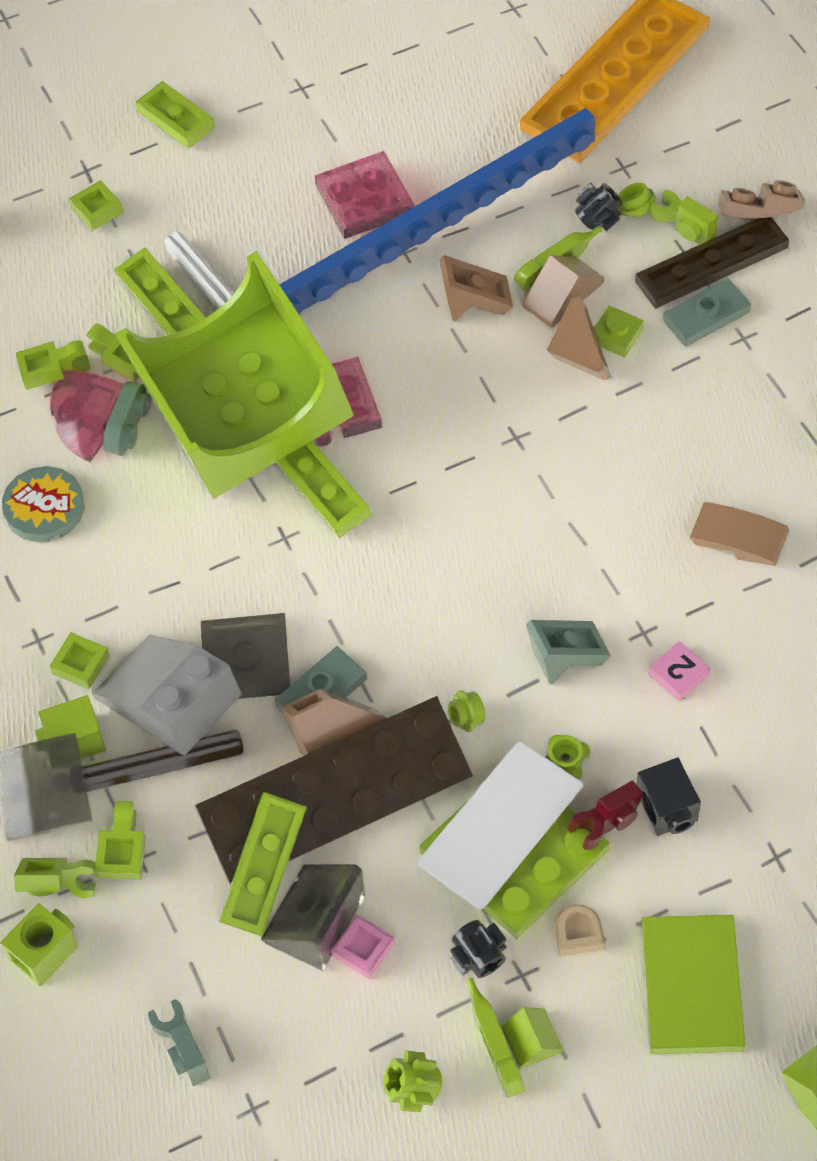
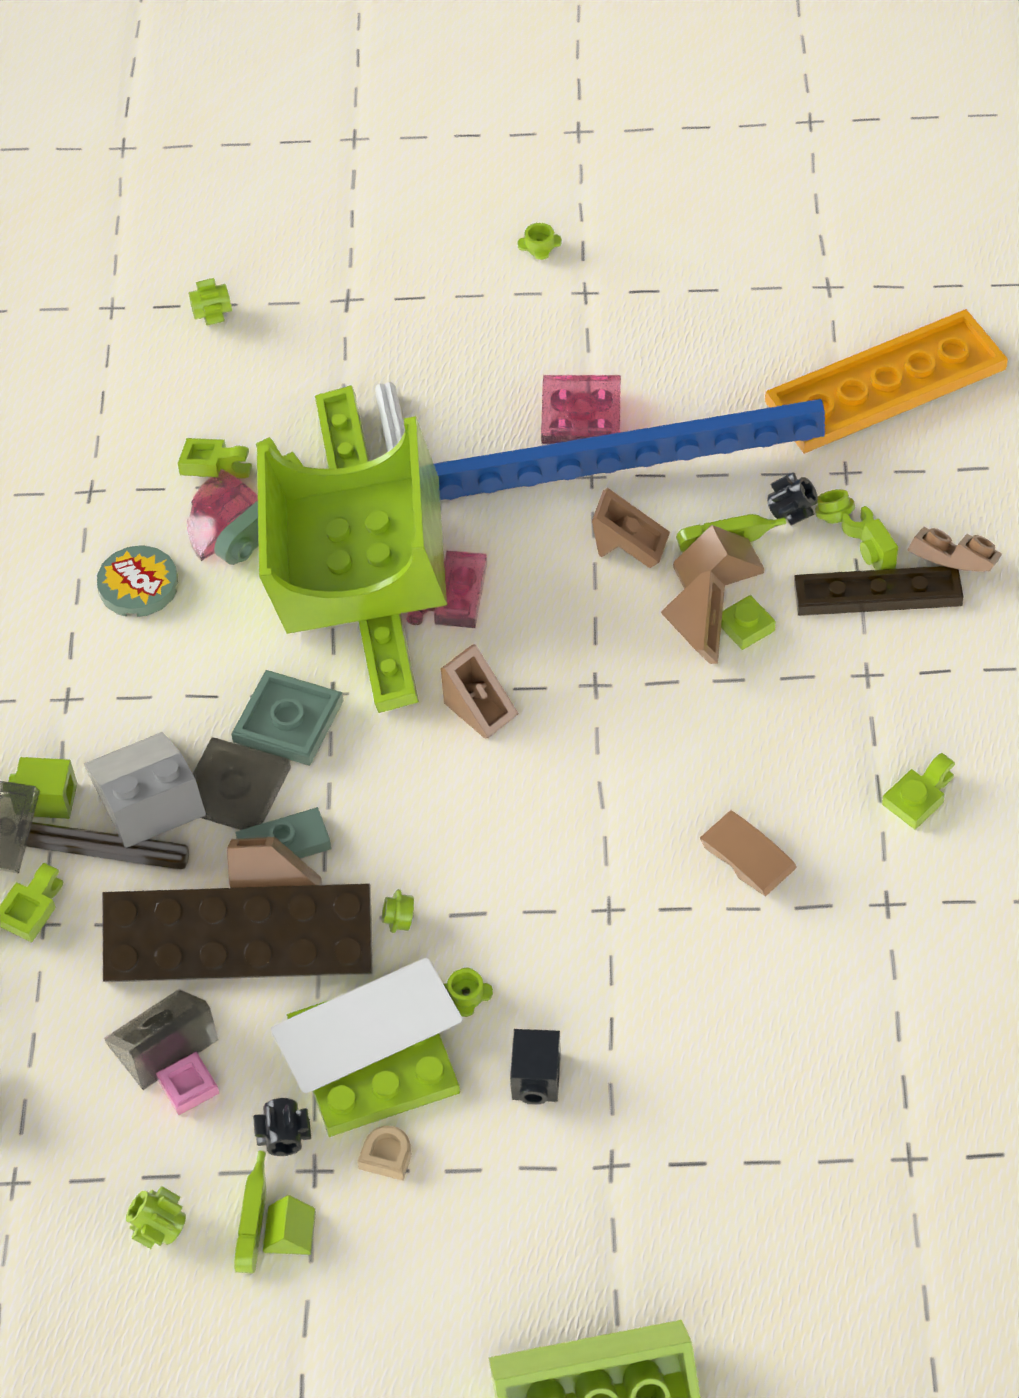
camera: 25 degrees right, 5 degrees down
(79, 660) = (87, 729): lime plate -> none
(96, 205) = (334, 333): lime plate -> none
(175, 114) = (451, 276): lime plate -> none
(236, 54) = (539, 240): none -> lime plate
(260, 575) = (287, 717): none -> sand green plate
(262, 864) = (135, 970): lime tile -> none
(422, 486) = (475, 693): none -> medium nougat slope
(564, 644) = (520, 886): sand green slope -> none
(611, 812) = (471, 1056): dark red plate -> none
(679, 671) = (618, 957): bright pink tile -> none
(692, 984) = (461, 1245): lime tile -> none
(706, 312) = (843, 636): sand green plate -> none

